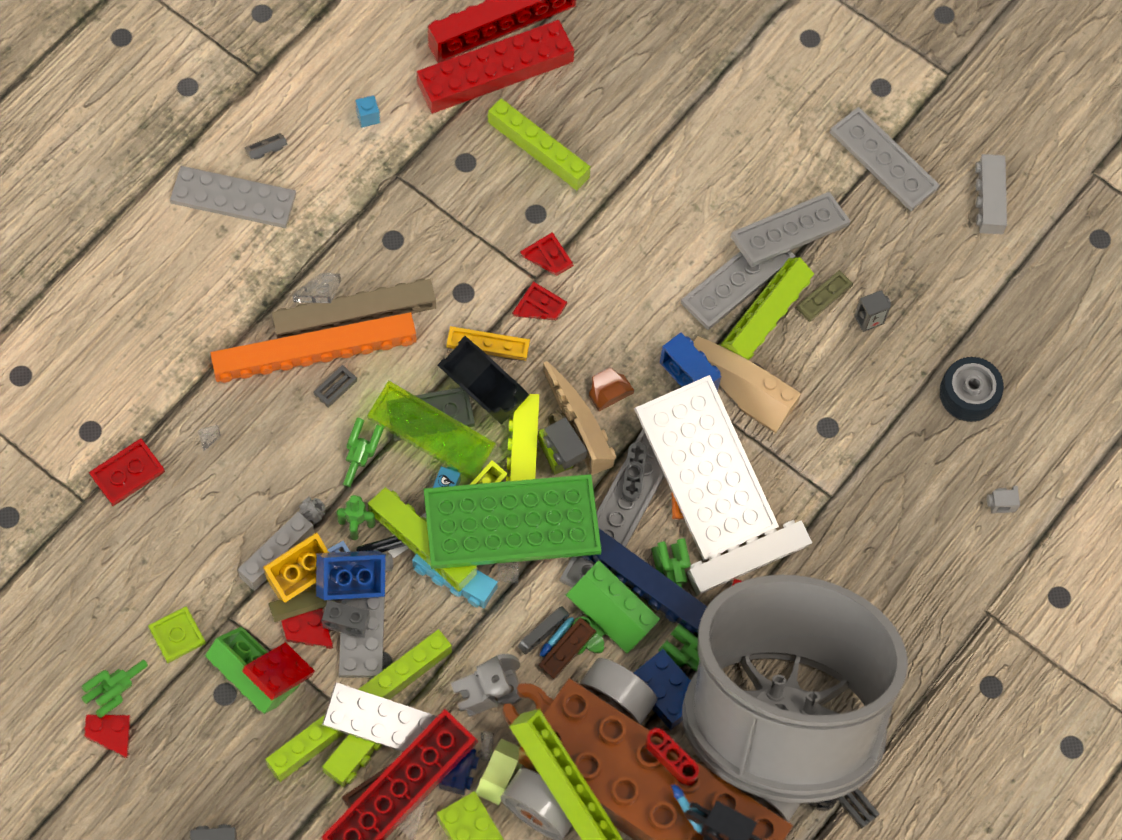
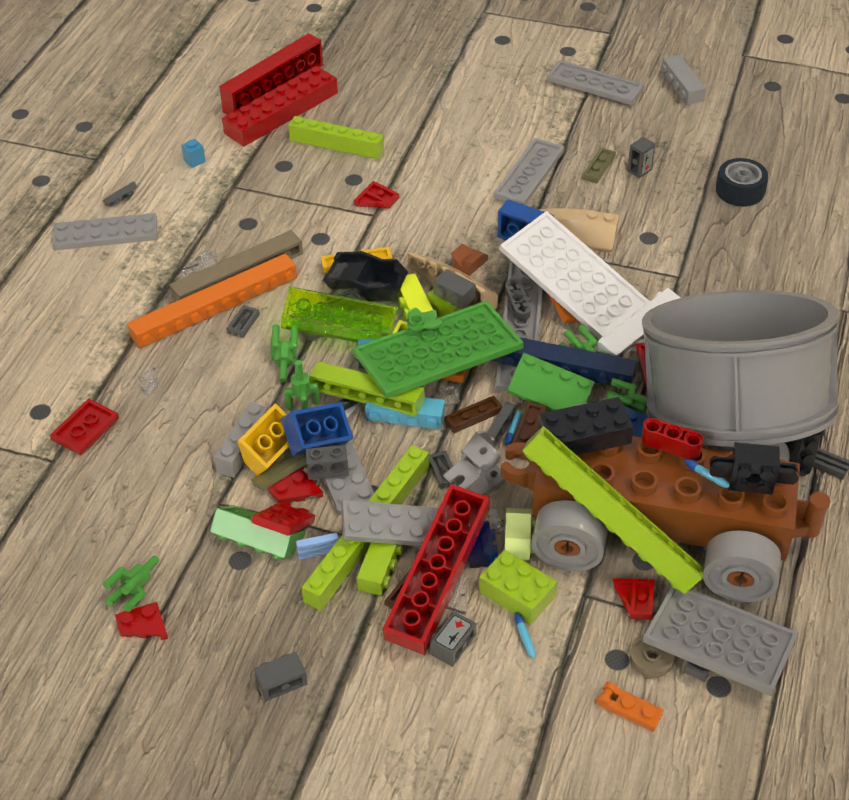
camera: 15 degrees left, 20 degrees down
(177, 634) = (177, 529): lime tile -> none
(301, 710) = (316, 545): none -> light blue tile
(312, 509) = (262, 399): light grey gear -> none
(463, 658) = (437, 456): none -> dark grey tile
(512, 478) = (424, 320): none -> bright green plate
(524, 603) = (473, 414): none -> reddish brown tile
(540, 304) = (385, 225): red wing -> none
(592, 712) = (590, 426): none -> black brick
(768, 308) = (563, 176): lime brick -> none
(790, 229) = (551, 131): light grey plate -> none
(1004, 500) = (809, 238): light grey brick -> none

